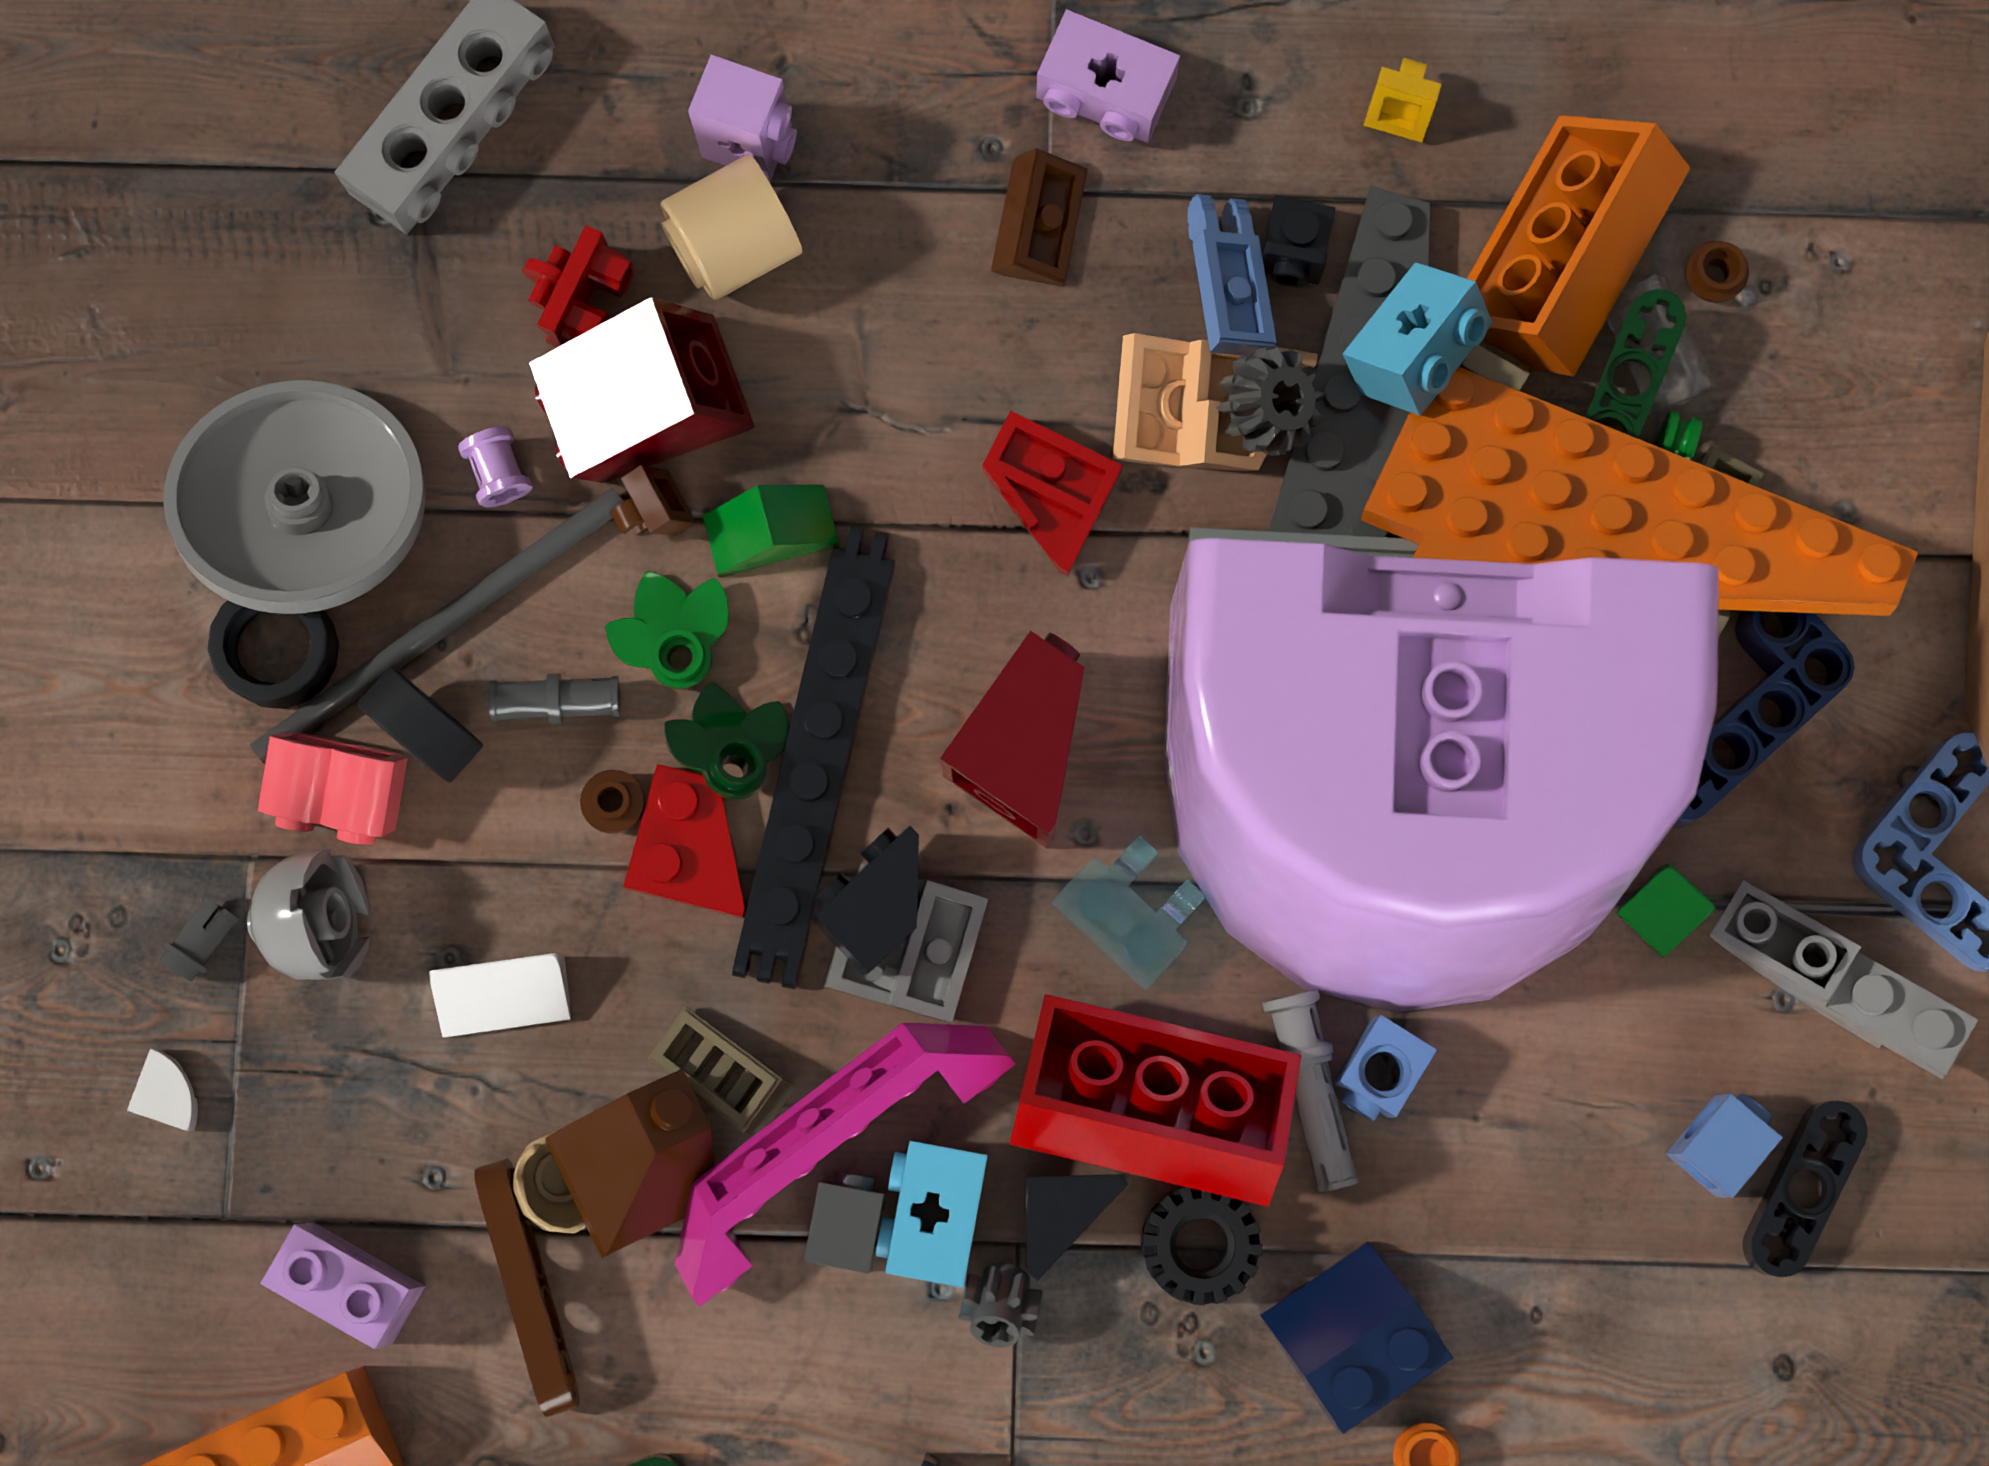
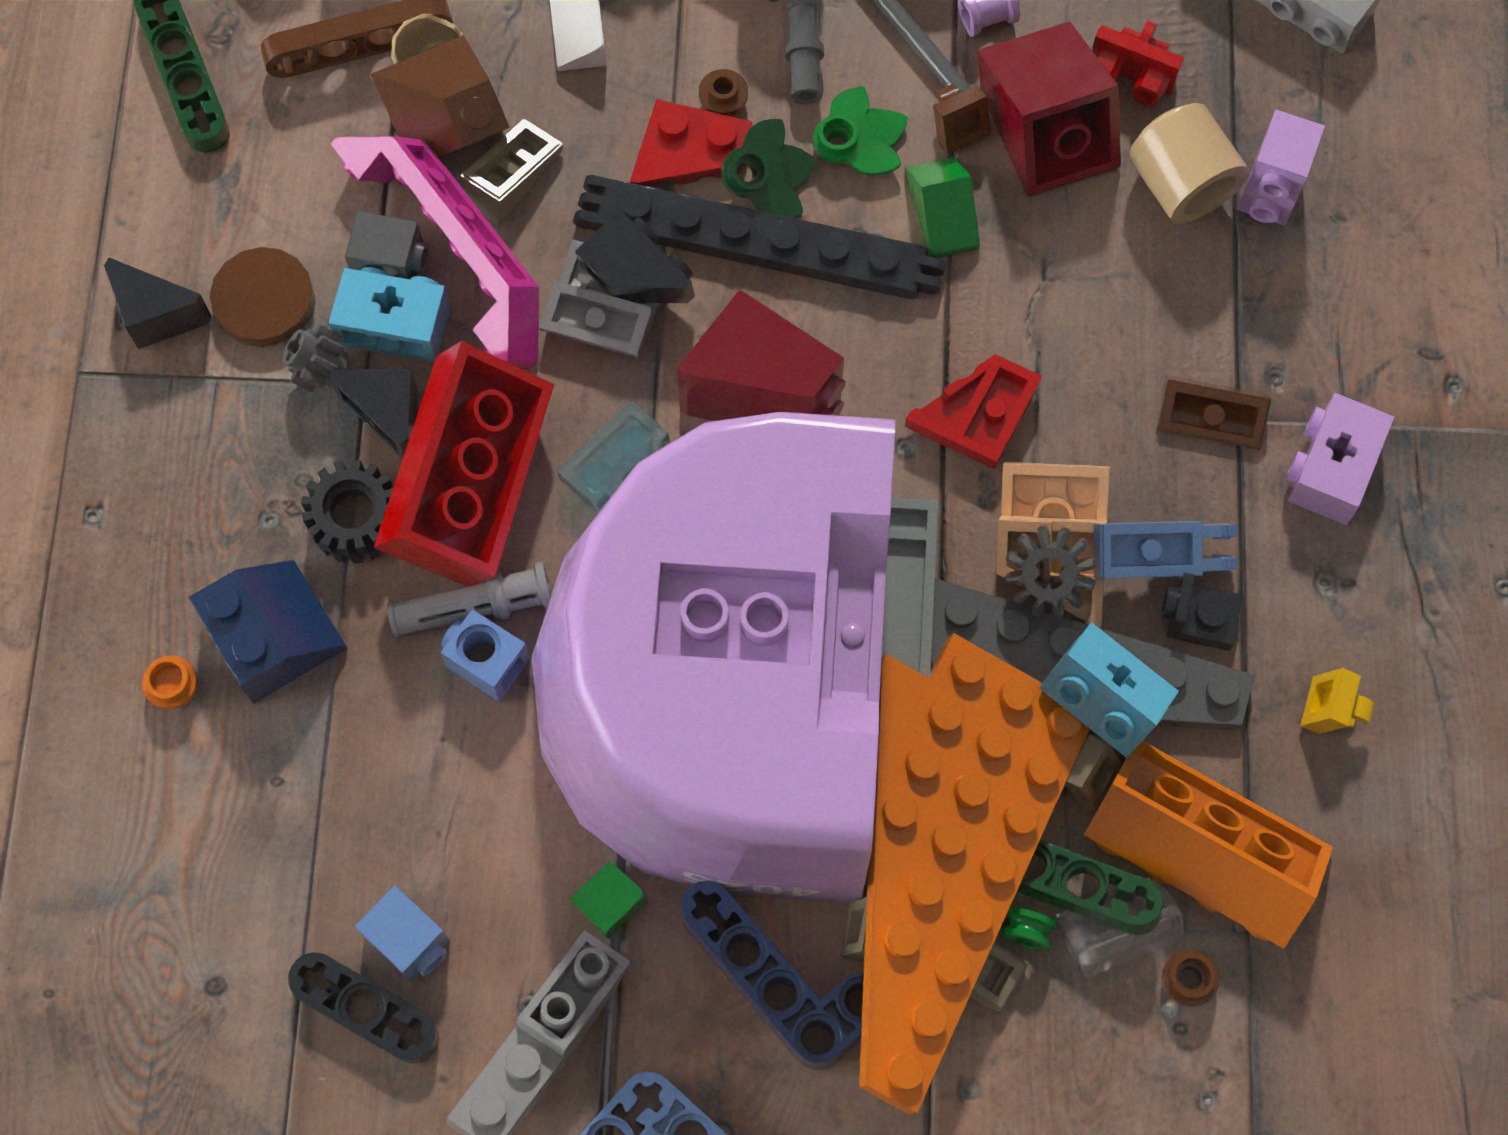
camera: 90 degrees right, 10 degrees down
(904, 1386) = (262, 296): none -> reddish brown tile

